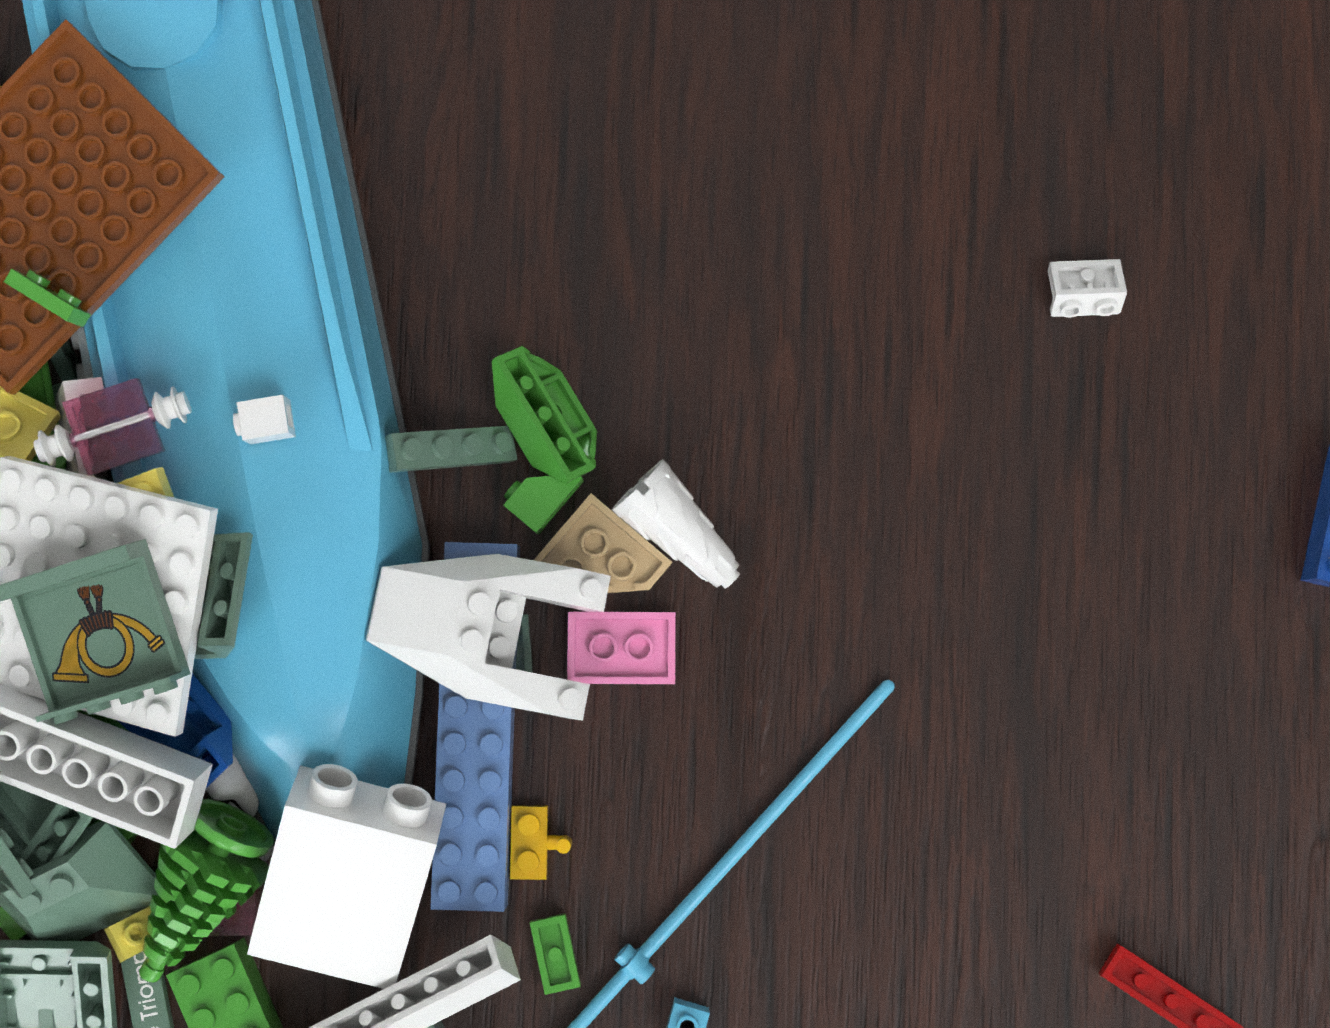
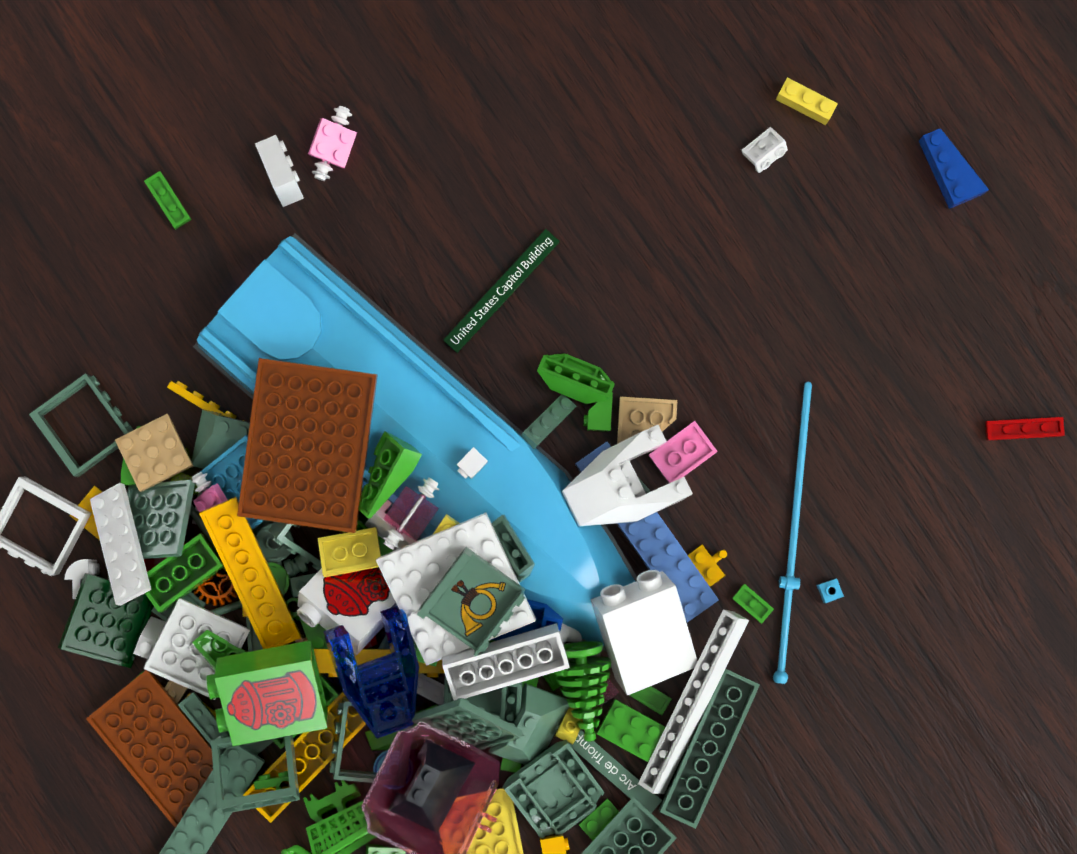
camera: 40 degrees left, 0 degrees up
(36, 288) = (337, 479): bright green plate -> none
(140, 336) = (392, 466): none -> bright green wedge
(299, 988) = (653, 699): none -> bright green tile
(535, 209) = (501, 291): none -> dark green tile
(666, 514) = (660, 381): white cone -> none
(1203, 260) = (806, 101): none -> light yellow brick

